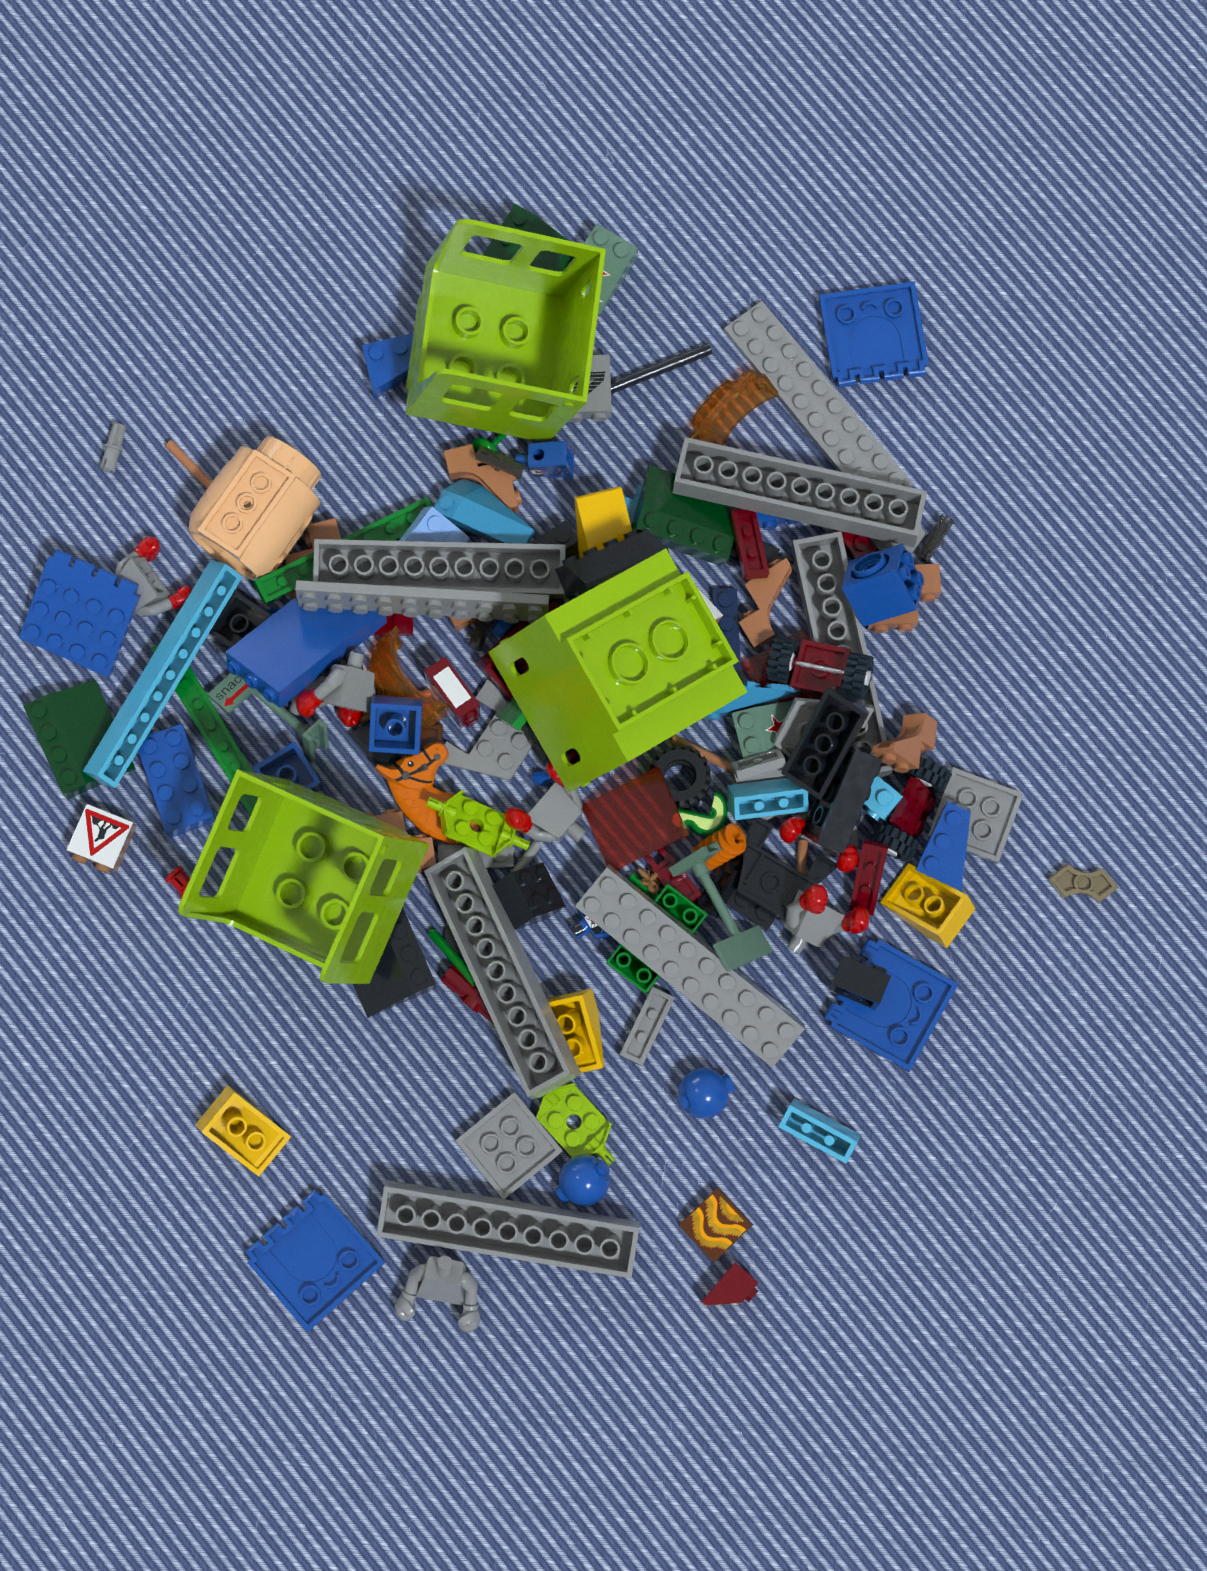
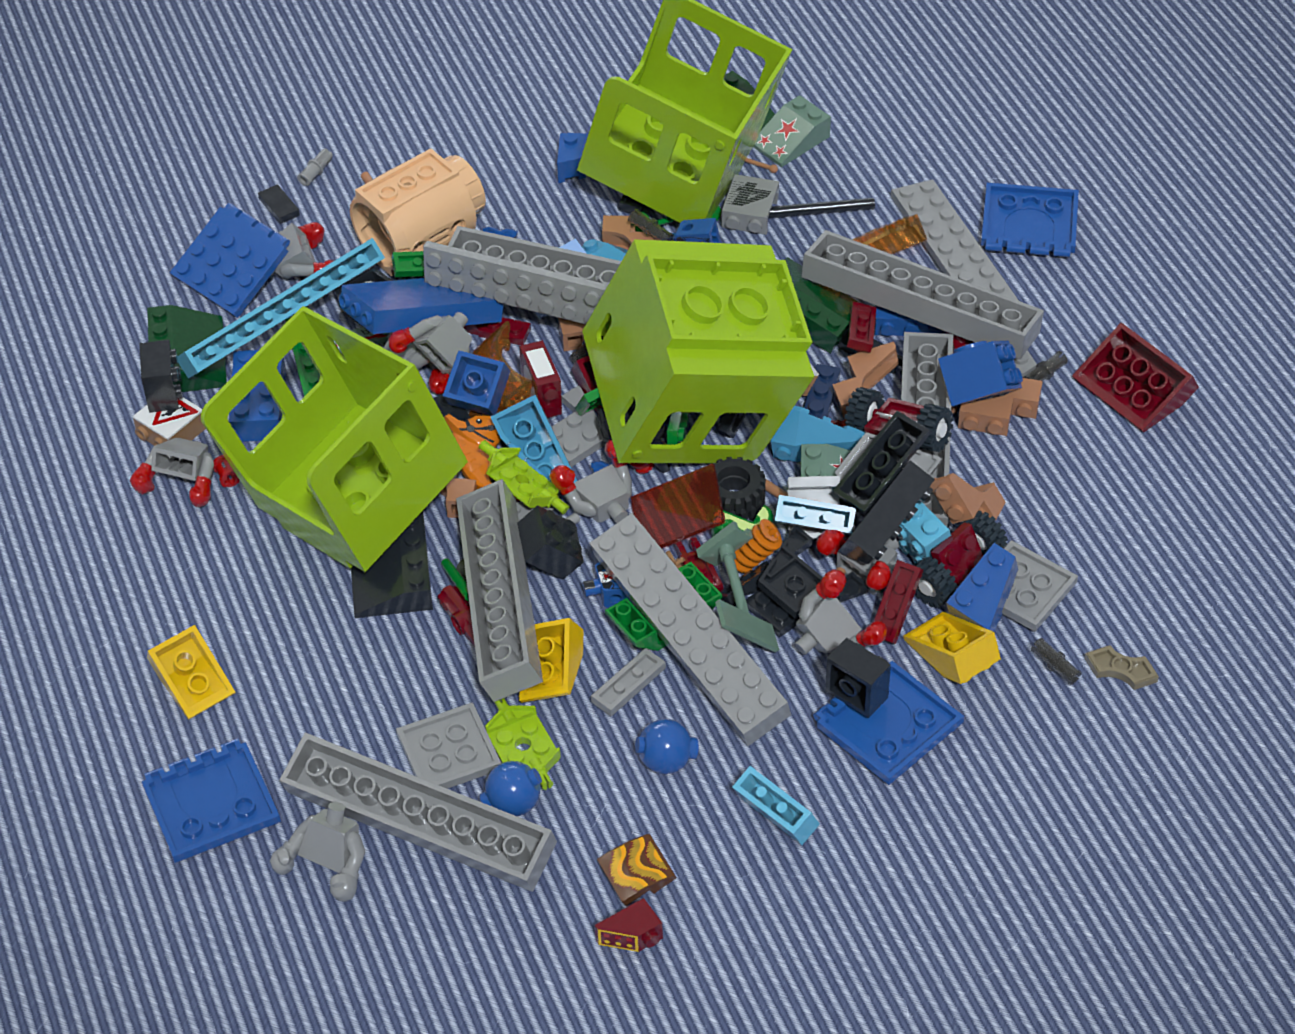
camera: 20 degrees right, 30 degrees down
(80, 806) = (160, 376): none -> black brick
(93, 509) = (278, 204): none -> black tile
(136, 888) = (180, 459): none -> light grey torso
(333, 494) = (505, 232): none -> blue piece
(466, 766) = (529, 429): none -> dark azure wedge
(1024, 530) = (1135, 378): none -> dark red slope
(1024, 895) = (1056, 661): none -> clear smoke pin

